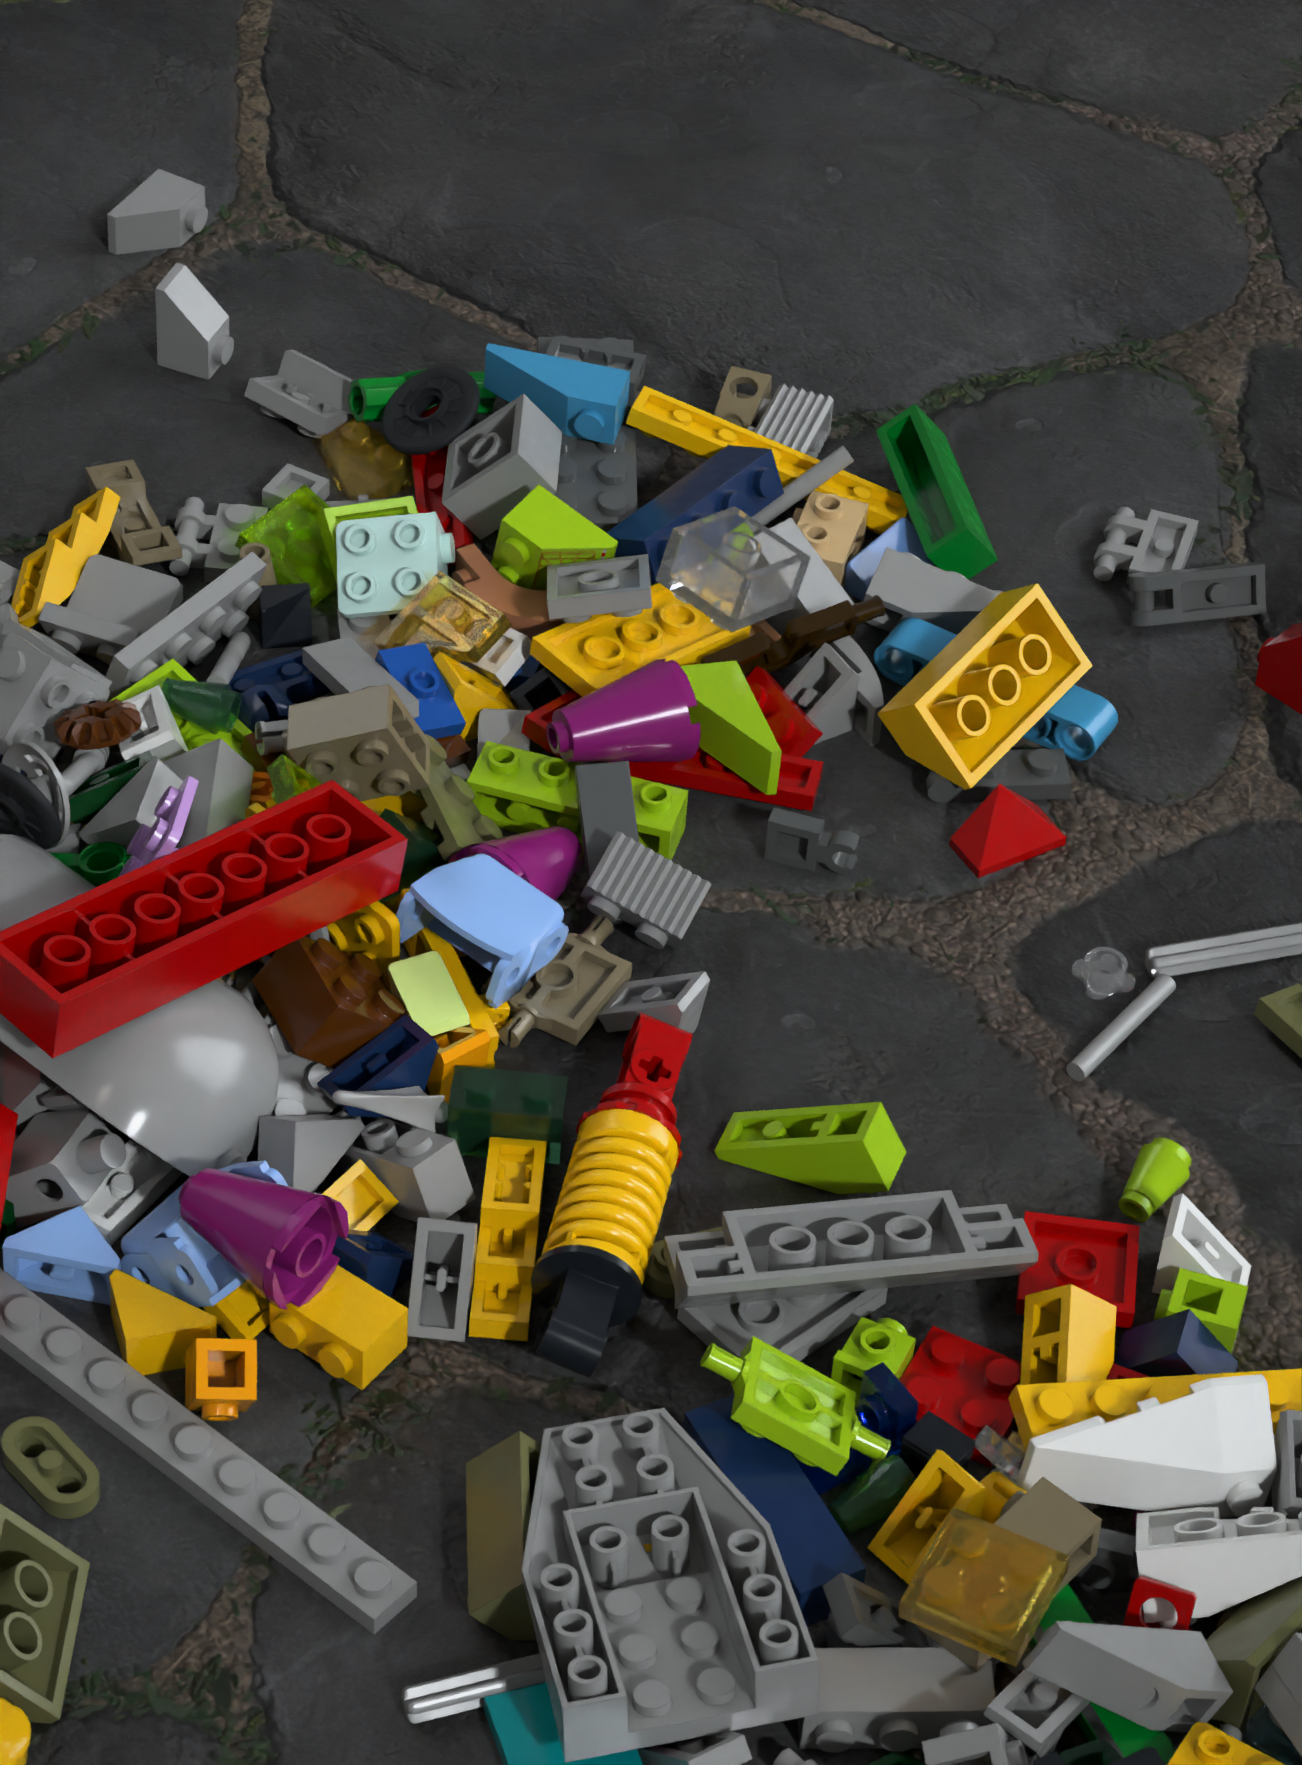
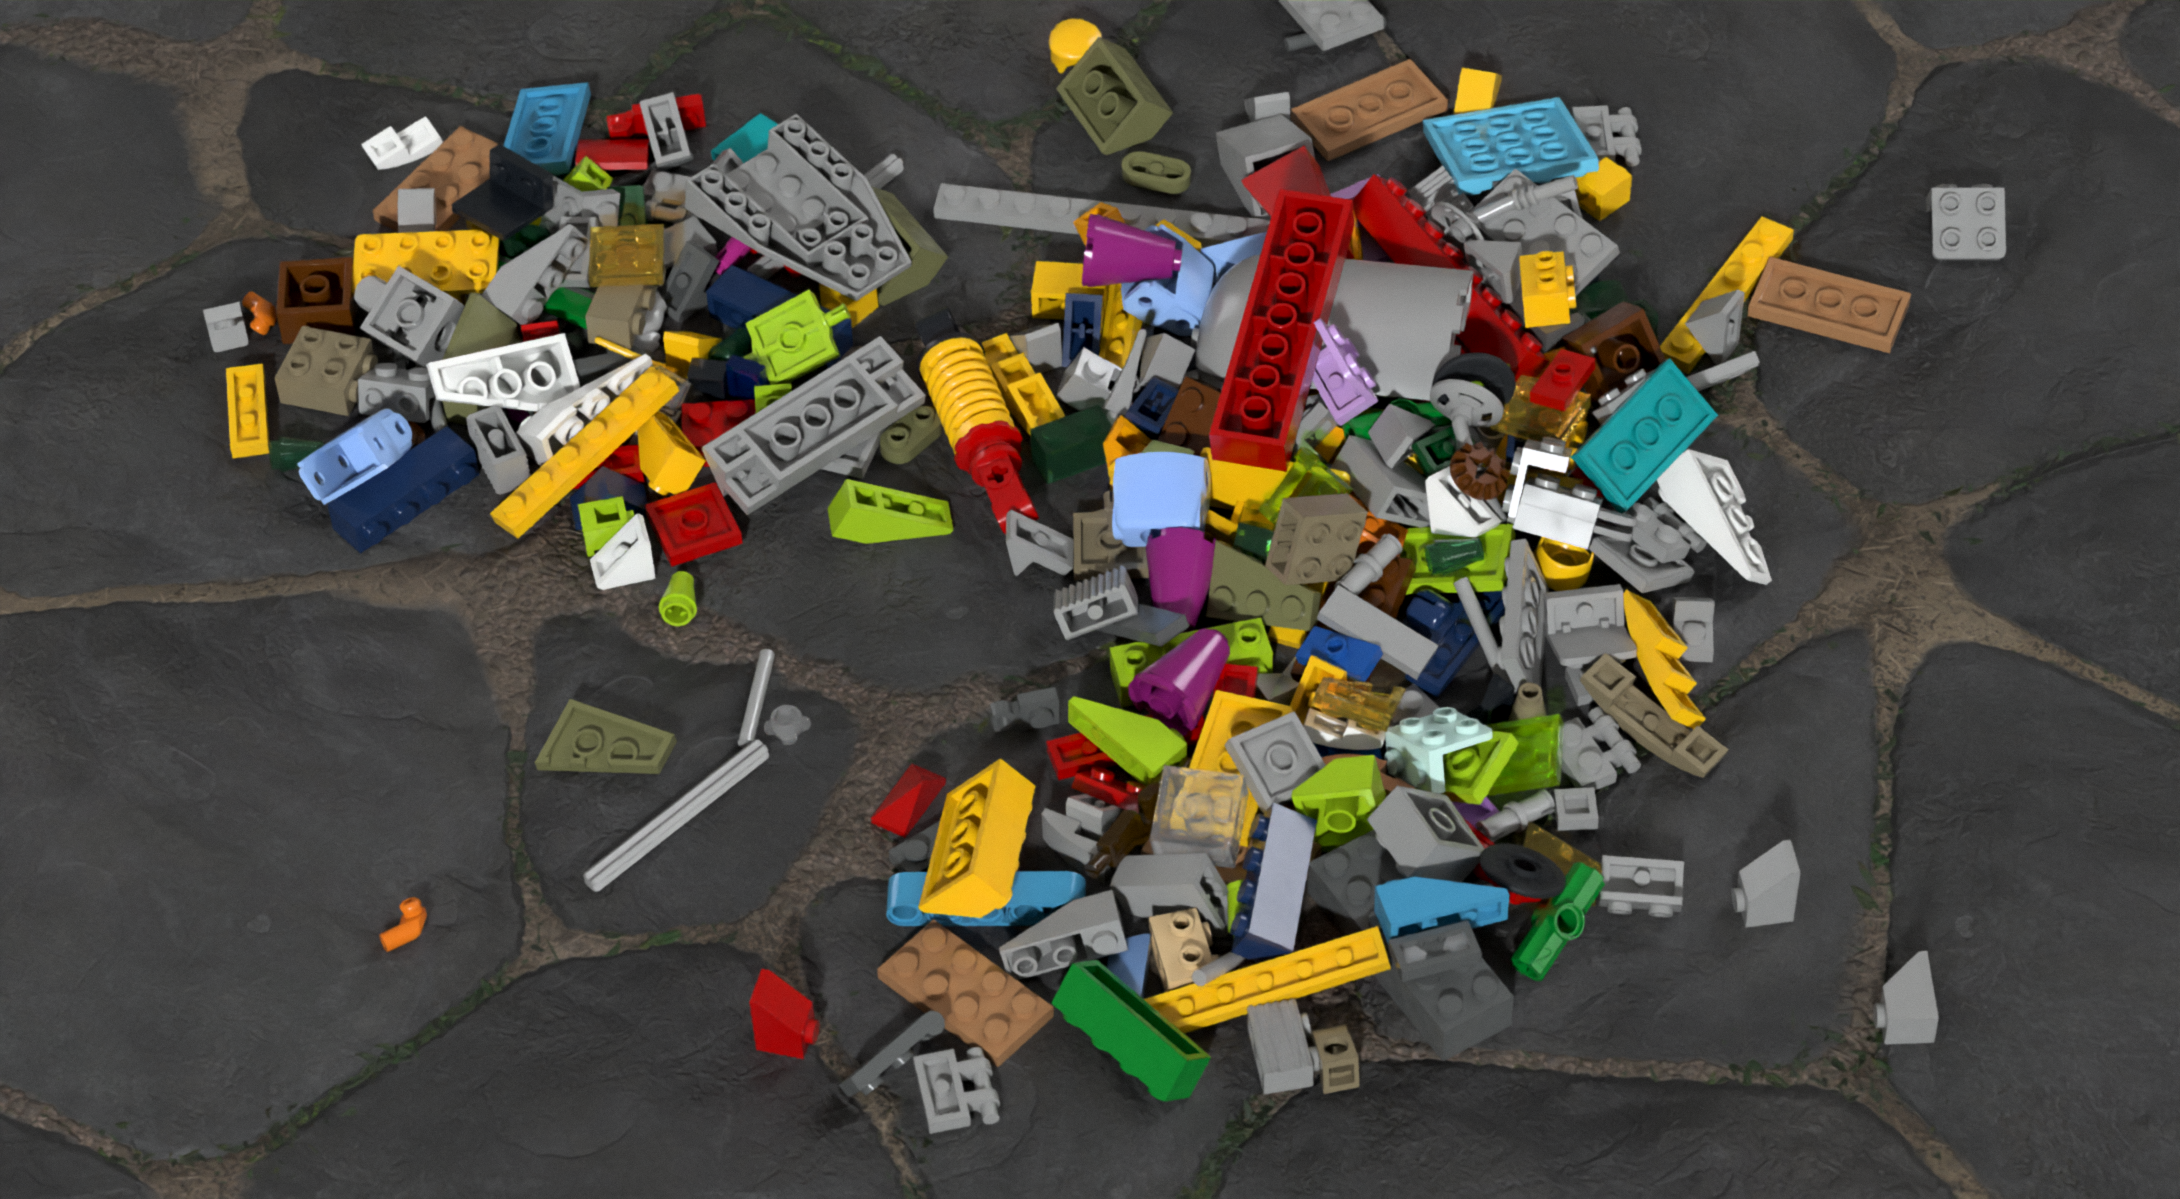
camera: 155 degrees right, 5 degrees up
(1081, 600) = (970, 992): none -> medium nougat plate

